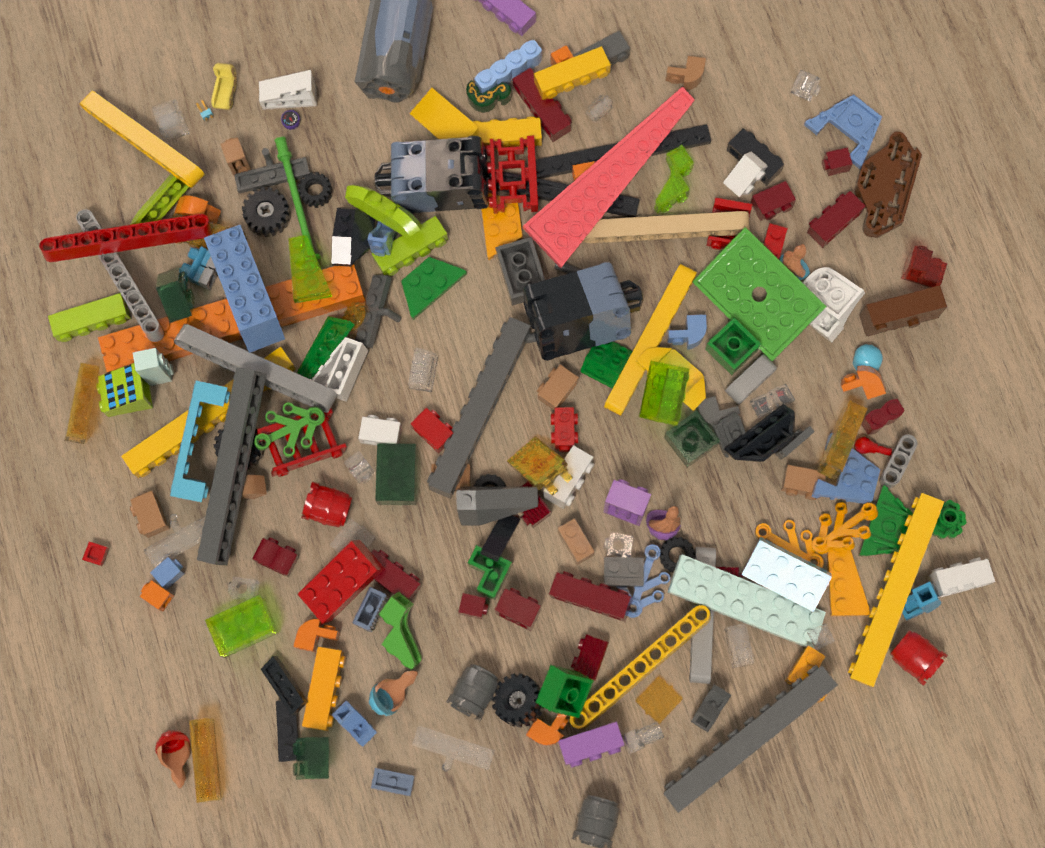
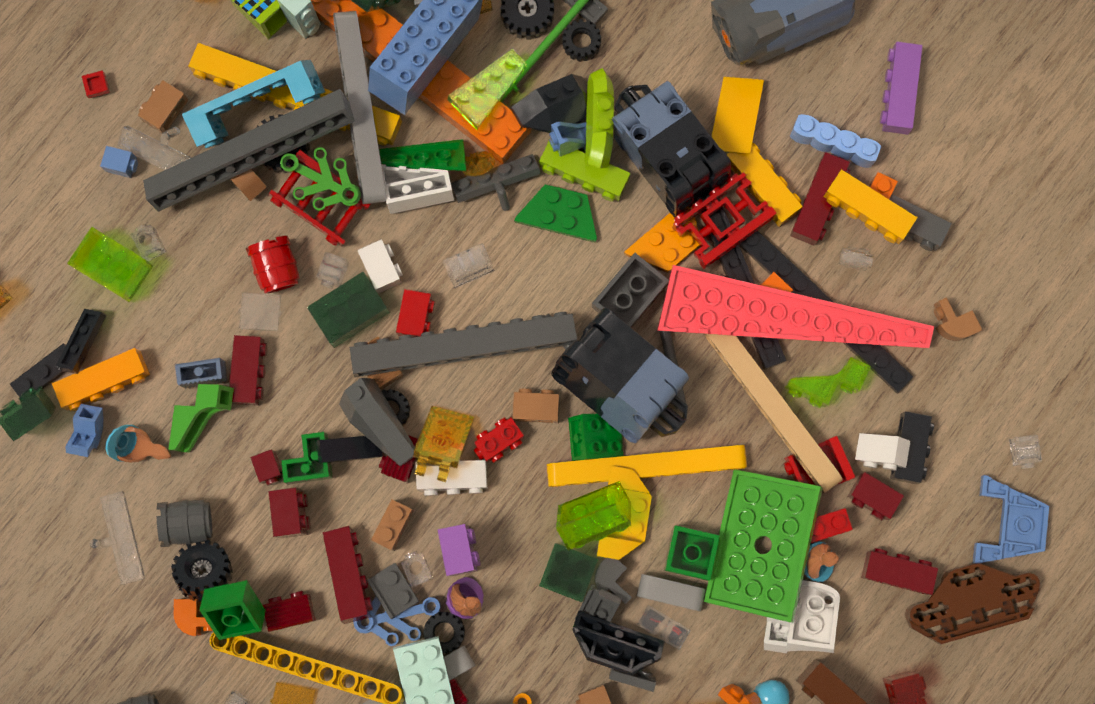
camera: 55 degrees right, 5 degrees up
(156, 595) = (89, 167): orange brick -> none
(276, 557) = (196, 250): dark red brick -> none
(309, 634) = (142, 332): orange brick -> none
(341, 581) = (209, 327): red brick -> none
(392, 782) = (56, 502): sand blue plate -> none
(487, 101) = (791, 144): dark green animal -> none
(591, 744) = (202, 667): medium lavender brick -> none
(694, 332) = (681, 506): medium blue brick -> none
(837, 161) = (963, 535): dark red brick -> none

